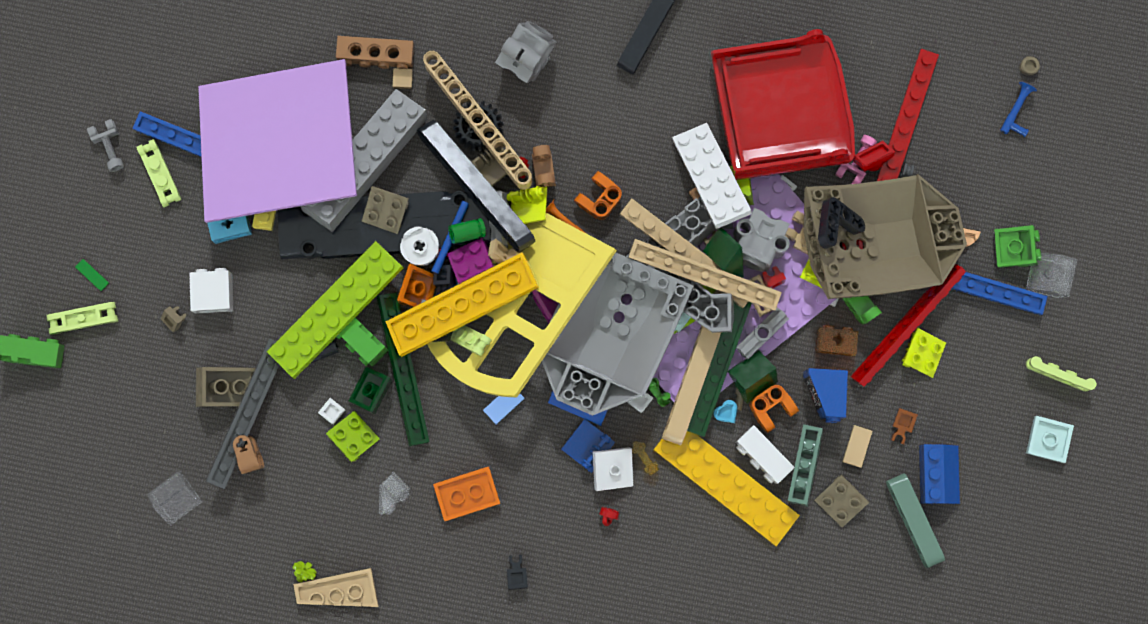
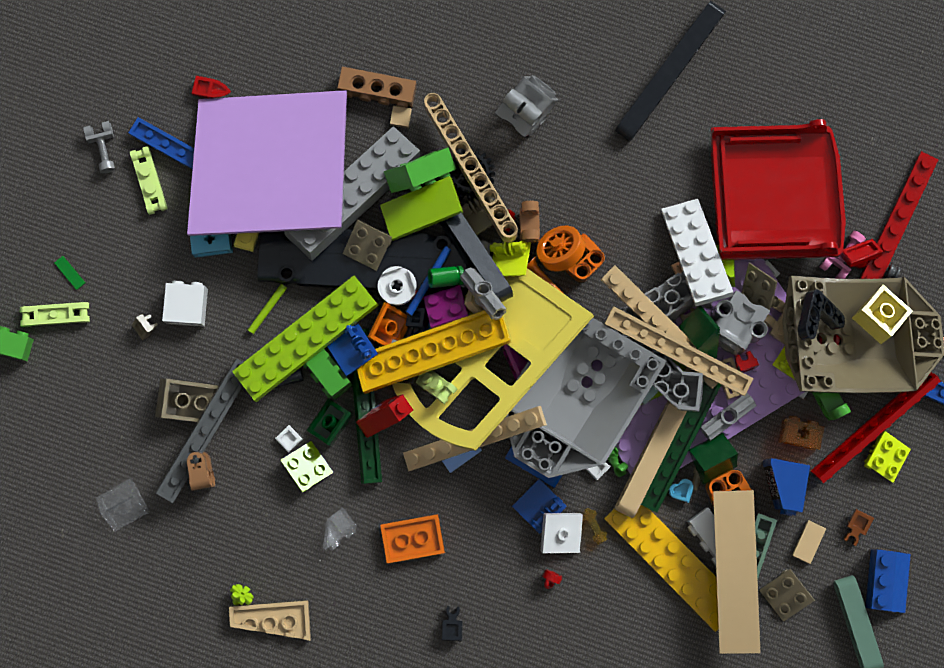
camera: 10 degrees right, 0 degrees up
(207, 73) = (209, 88): none -> red plate
(293, 286) = (267, 308): none -> lime bar
(383, 314) = (352, 349): none -> blue hinge
(423, 375) = (384, 415): none -> red slope
(428, 129) = (420, 171): none -> bright green wedge
(434, 166) = (421, 208): none -> lime tile
(505, 242) = (483, 293): none -> light grey piece
(545, 372) = (509, 427): none -> tan plate
(577, 188) = (560, 248): none -> orange wheel
(777, 203) = (760, 287): none -> dark tan hinge
(788, 484) = (736, 572): none -> tan slope
(900, 213) = (882, 314): none -> light yellow slope

